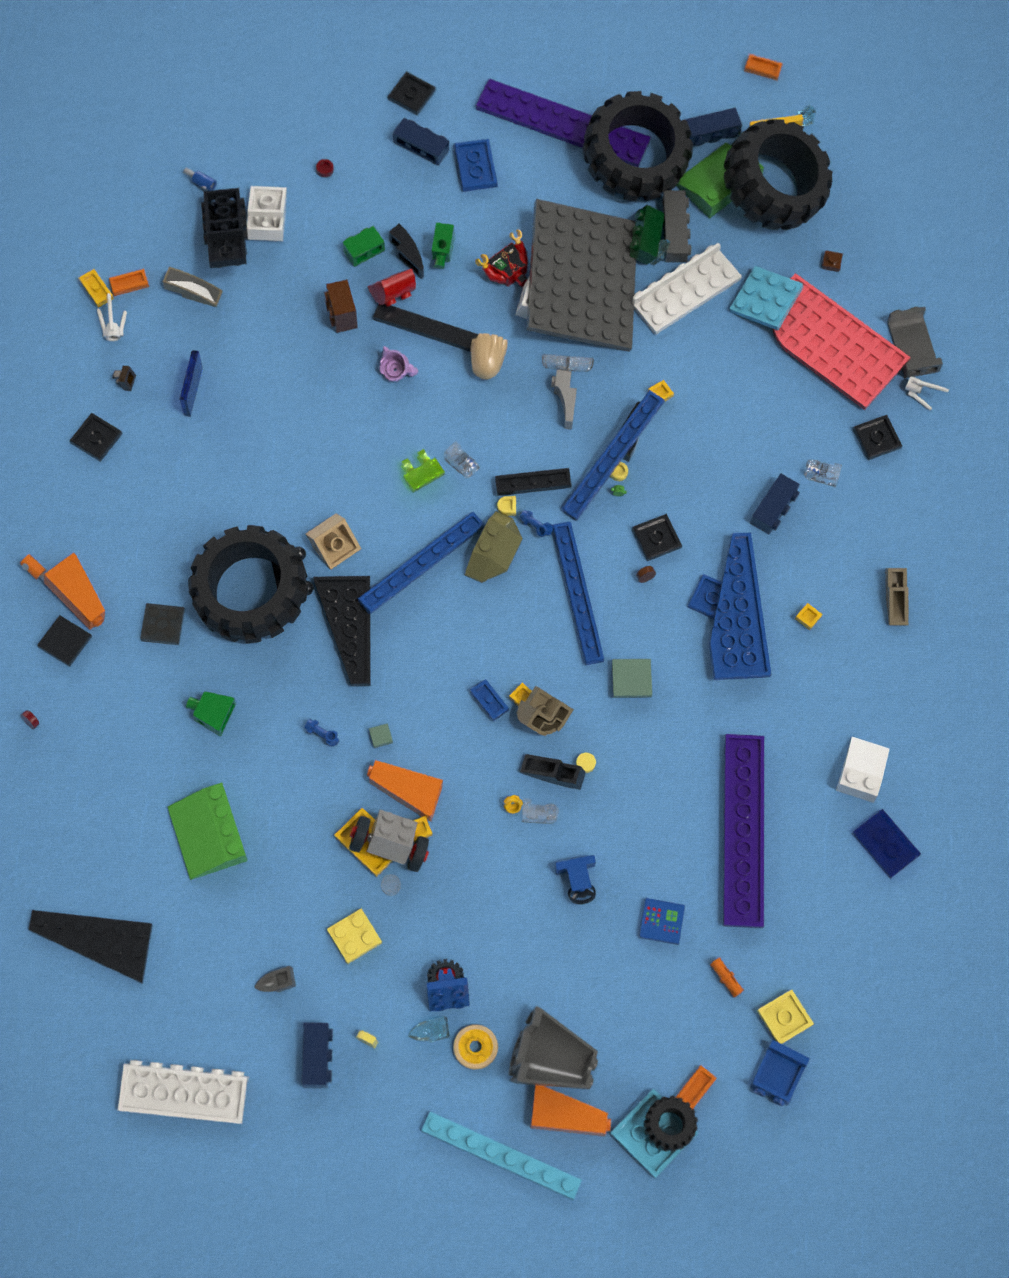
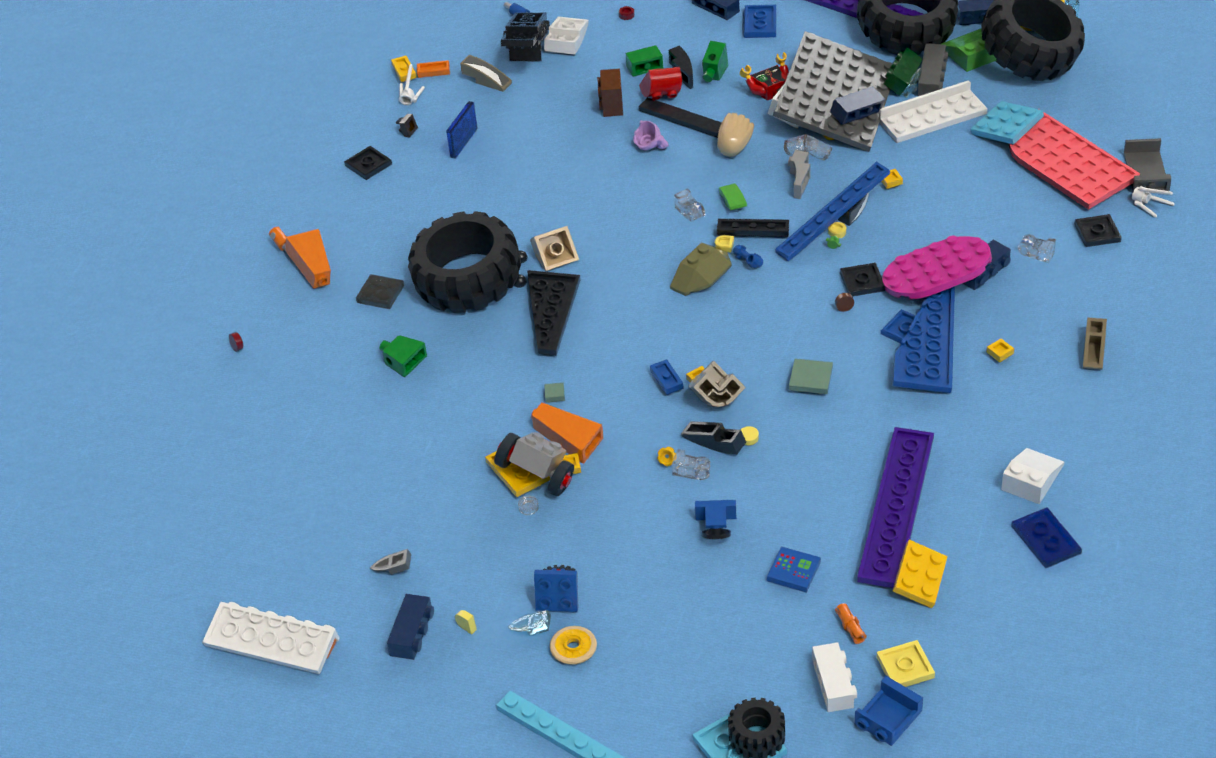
camera: 20 degrees right, 25 degrees down
(64, 640) = (288, 293): black tile -> none
(106, 941) = (239, 512): black wing -> none
(207, 832) = (367, 441): bright green slope -> none
(330, 736) = (506, 385): blue bar -> none
(354, 936) = (480, 540): light yellow plate -> none
(421, 563) = (627, 272): blue tile -> none
(424, 474) = (654, 212): clear neon green plate -> none
(503, 439) = (733, 196): none -> bright green slope
(551, 1055) = (649, 656): dark grey cone -> none
(565, 1114) = (650, 713): orange slope -> none
(578, 593) = (775, 312): blue tile -> none
(610, 300) = (857, 105): none -> brick
(697, 1086) = (799, 712): orange tile -> none
(724, 1043) = (834, 677): none -> white brick
(731, 519) = (937, 267): none -> dark pink plate
(780, 910) = (920, 573): none -> yellow plate
(832, 261) = (1077, 107): reddish brown plate -> none

